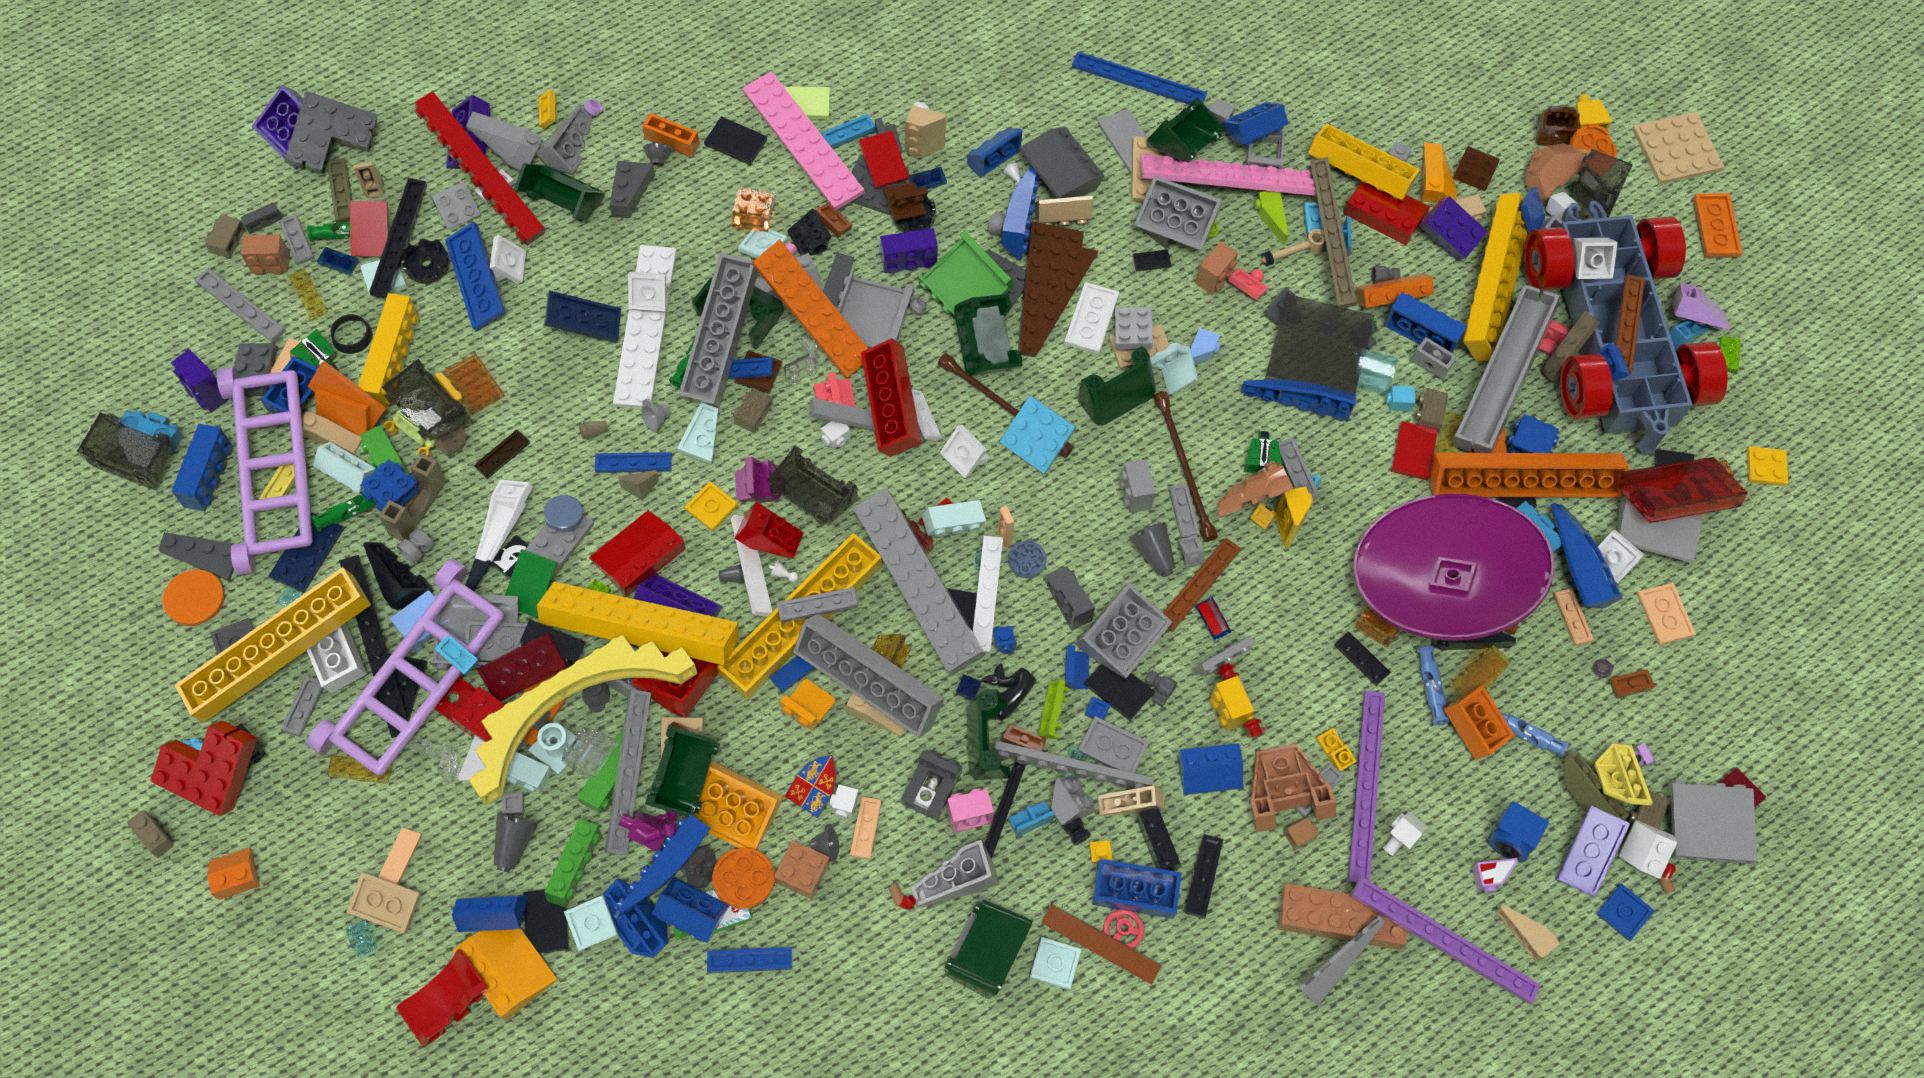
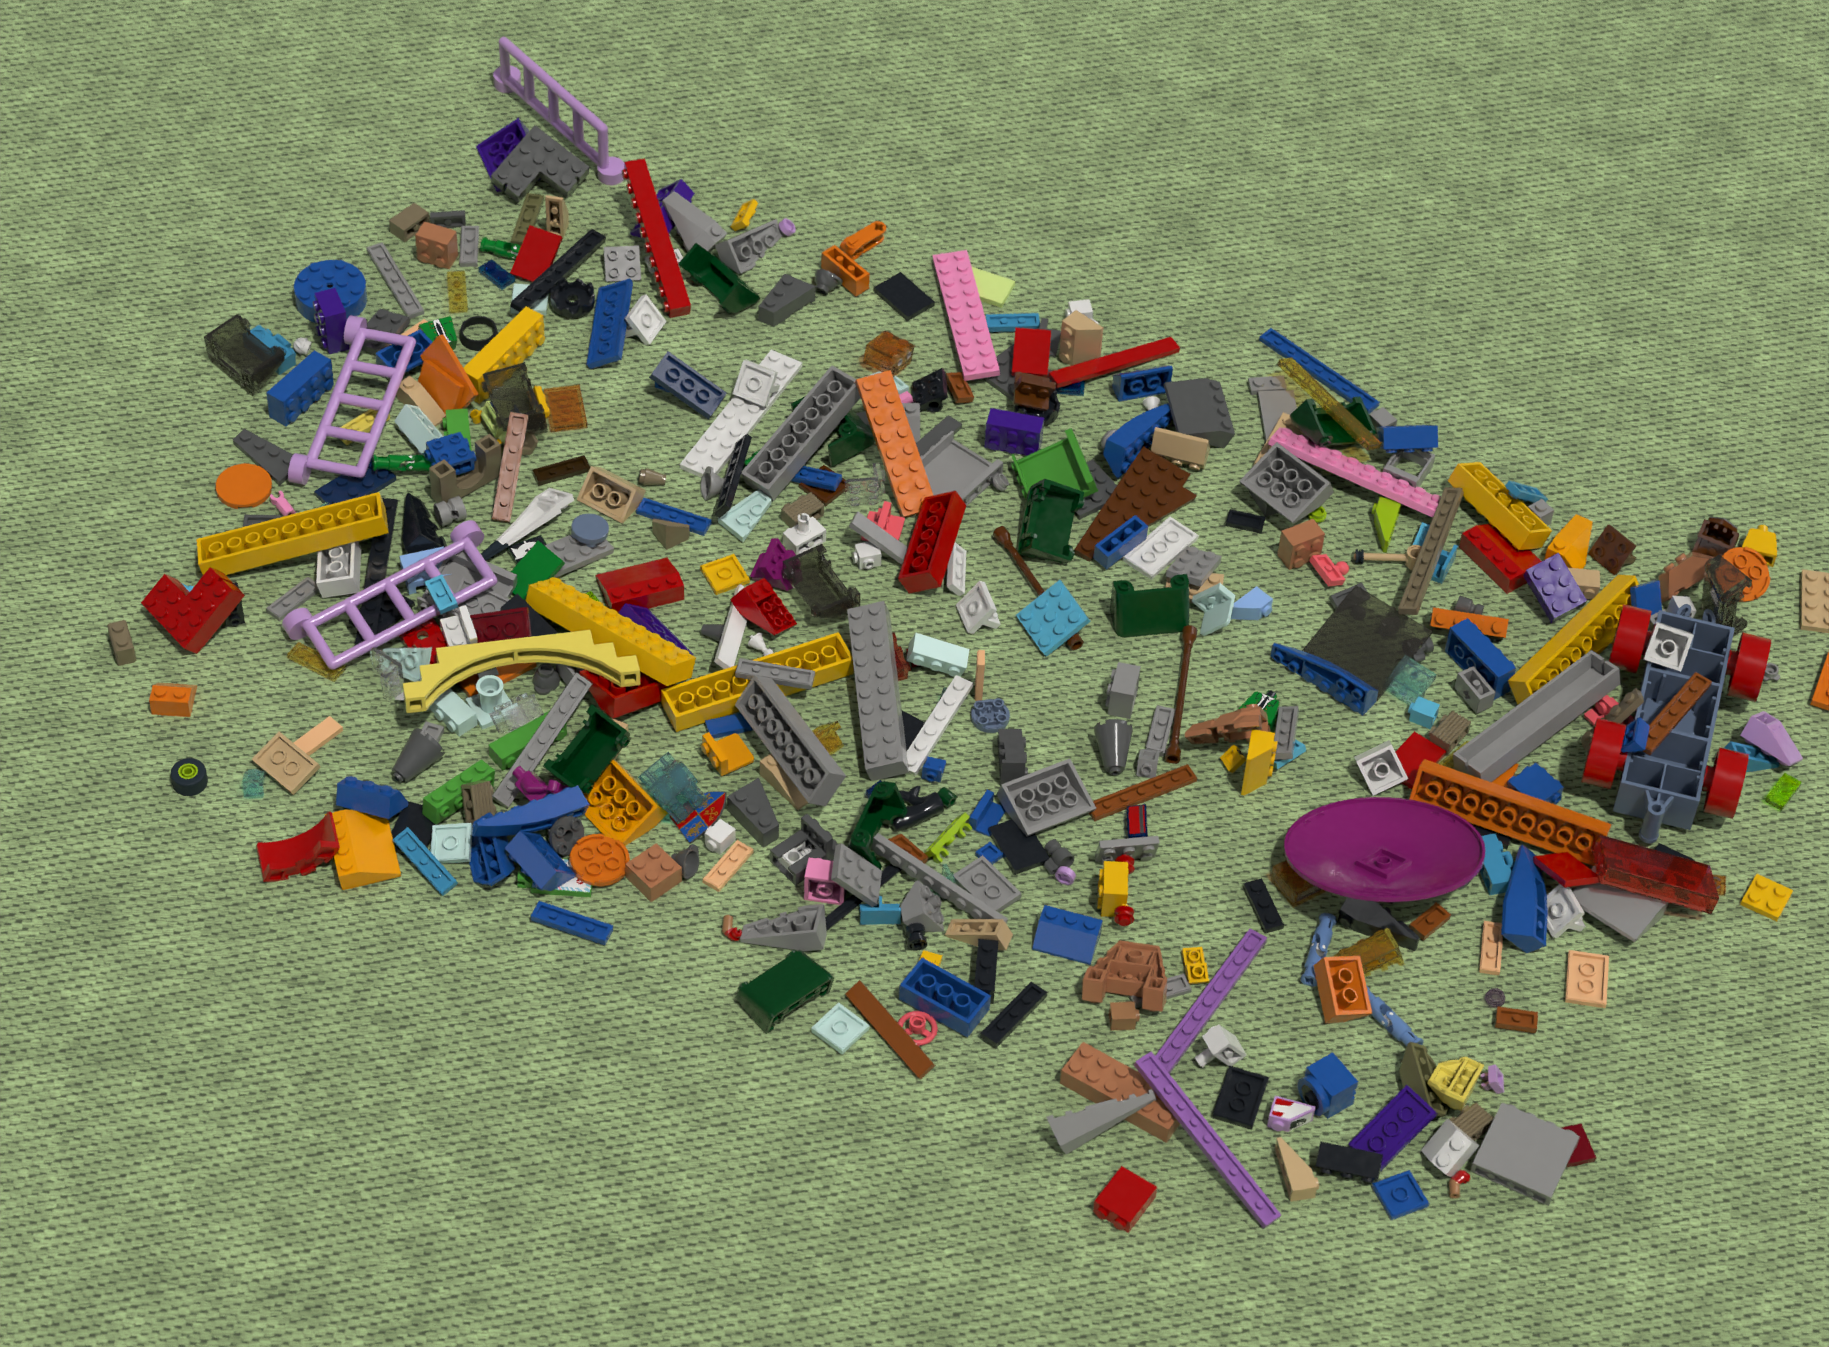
camera: 25 degrees right, 15 degrees down
(174, 333) = (327, 275): none -> blue piece
(180, 415) = (302, 346): none -> white plate
(244, 604) = (282, 504): none -> bright pink bar
(250, 45) = (508, 80): none -> lavender fence
(295, 967) = (189, 777): none -> black wheel
(455, 477) = (510, 467): none -> tile
(461, 736) = (411, 660): none -> light aqua wing
(493, 689) = (459, 628): none -> white bracket
(562, 463) = (610, 494): none -> tan slope
(575, 954) = (425, 861): none -> dark azure tile
(598, 868) = (477, 800): none -> dark tan brick
(672, 95) = (863, 240): none -> orange piece
(672, 399) = (733, 475): none -> black tile
(767, 436) = (805, 535): none -> white brick
(780, 772) = (673, 787): none -> clear light blue brick
(865, 760) = (754, 812): none -> dark grey wedge
(903, 99) = (1082, 306): none -> white brick
(959, 140) = (1114, 362): none -> red tile
(999, 797) = (856, 875): none -> light grey plate
(1032, 665) = (947, 797): none -> dark green hose
(1059, 329) = (1120, 542): none -> blue brick
(1101, 111) = (1269, 383): none -> light grey plate
(1174, 114) = (1329, 404): none -> clear yellow tile
(1178, 704) = (1065, 875): none -> lavender tile
(1379, 140) = (1524, 492): none -> dark azure plate
(1395, 472) = (1381, 767): none -> white slope
(1398, 1033) = (1124, 1199): none -> red brick
(1441, 872) = (1240, 1097): none -> black tile
(1571, 901) = (1349, 1162): none -> black brick
(1606, 515) = (1566, 869): none -> red tile

